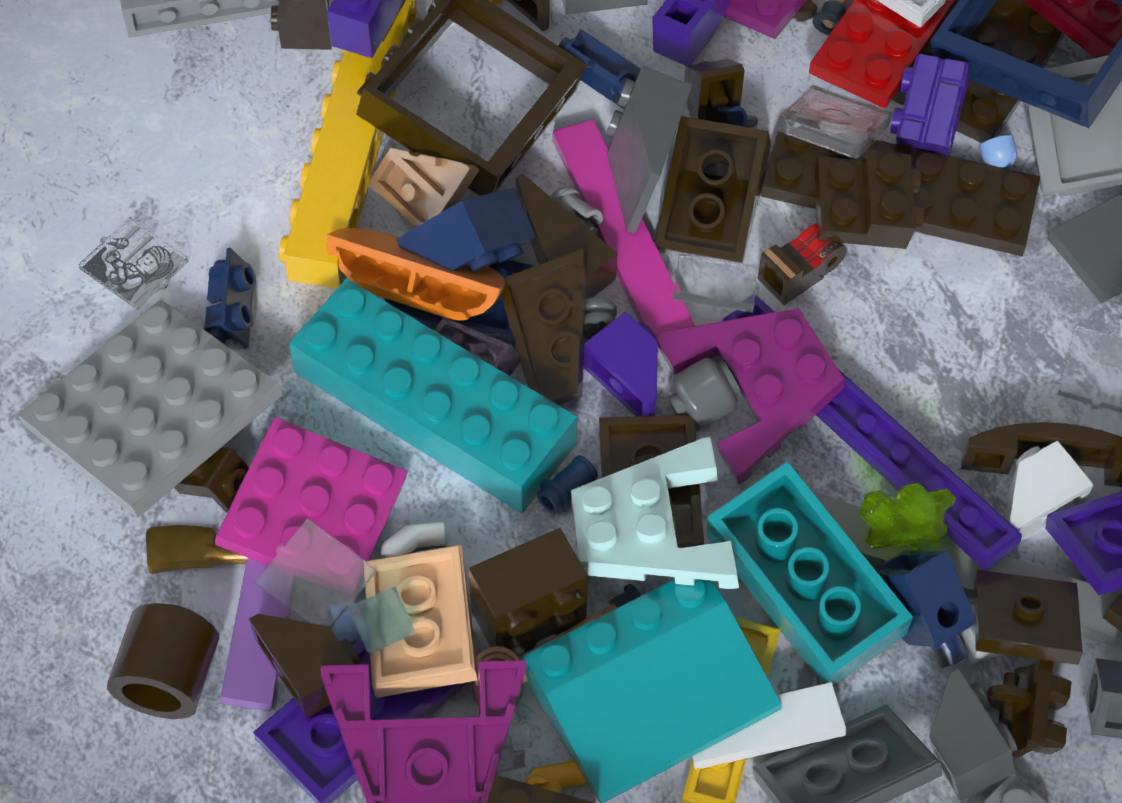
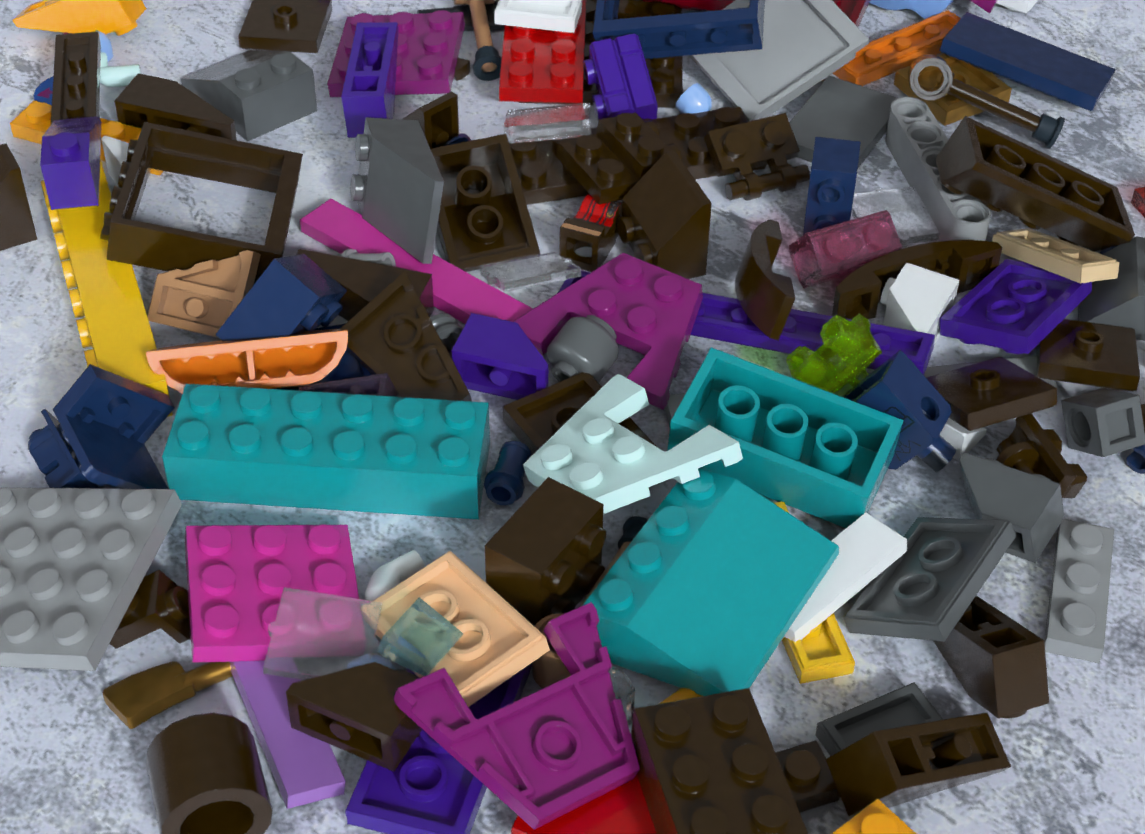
camera: 30 degrees left, 15 degrees down
(265, 301) = (108, 427): none -> dark blue bracket
(605, 68) = (321, 161): dark blue hinge -> none
(863, 290) = (668, 219): none -> dark brown slope
(887, 418) = (761, 293): none -> dark brown slope
(1011, 234) = (754, 145): none -> dark brown plate
(1016, 394) = (843, 248): none -> clear pink brick
(1043, 325) = (831, 183): none -> dark blue brick

